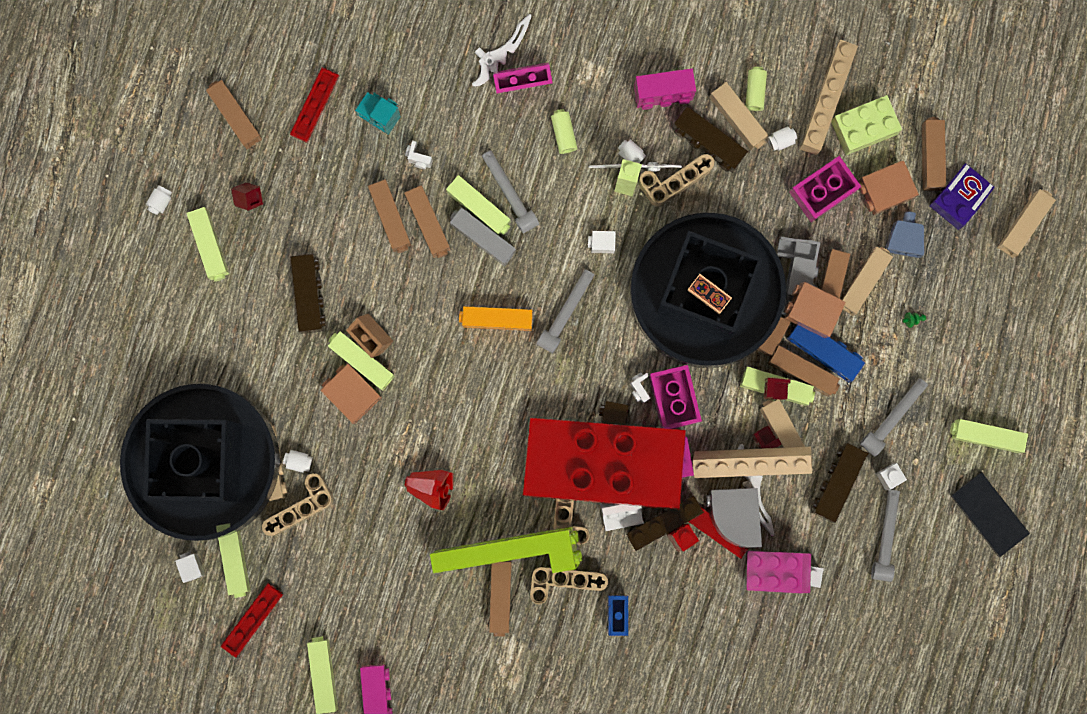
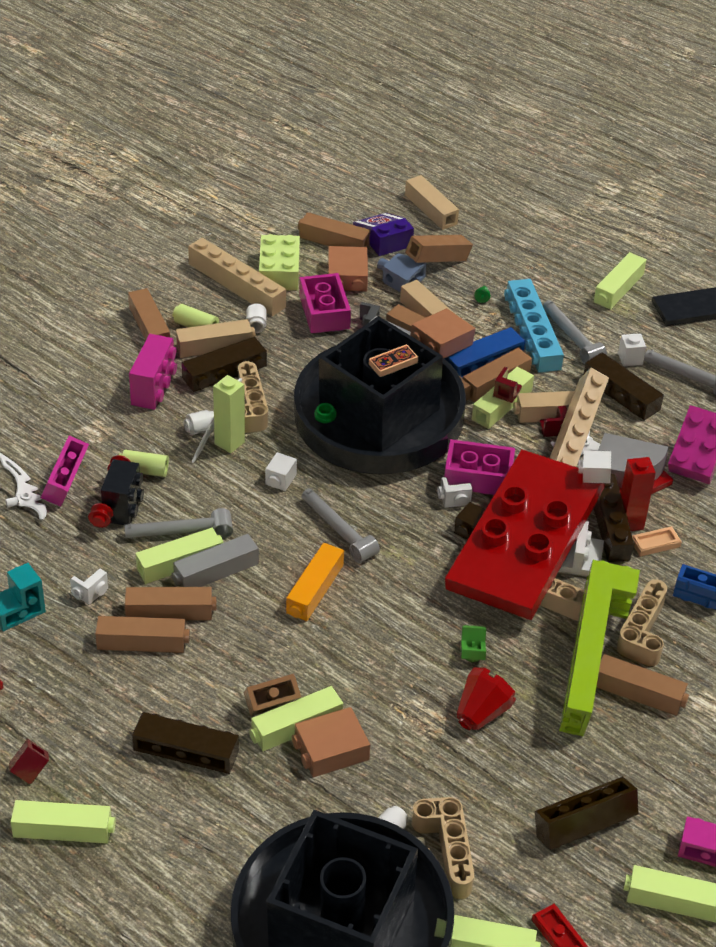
camera: 65 degrees left, 40 degrees down
(360, 594) = (586, 813): none -> dark brown brick
(485, 460) = (473, 643): none -> bright green bracket
(516, 131) = (118, 494): none -> black brick
(662, 249) = (325, 413): none -> green plate
(664, 564) = (656, 541): none -> light nougat tile
(678, 499) = (596, 466): none -> white brick
(736, 51) = (147, 314): none -> medium nougat brick
(826, 236) = (368, 312): none -> dark grey bracket
(930, 355) = (534, 325): none -> medium azure brick
(946, 259) = (438, 248): none -> medium nougat brick

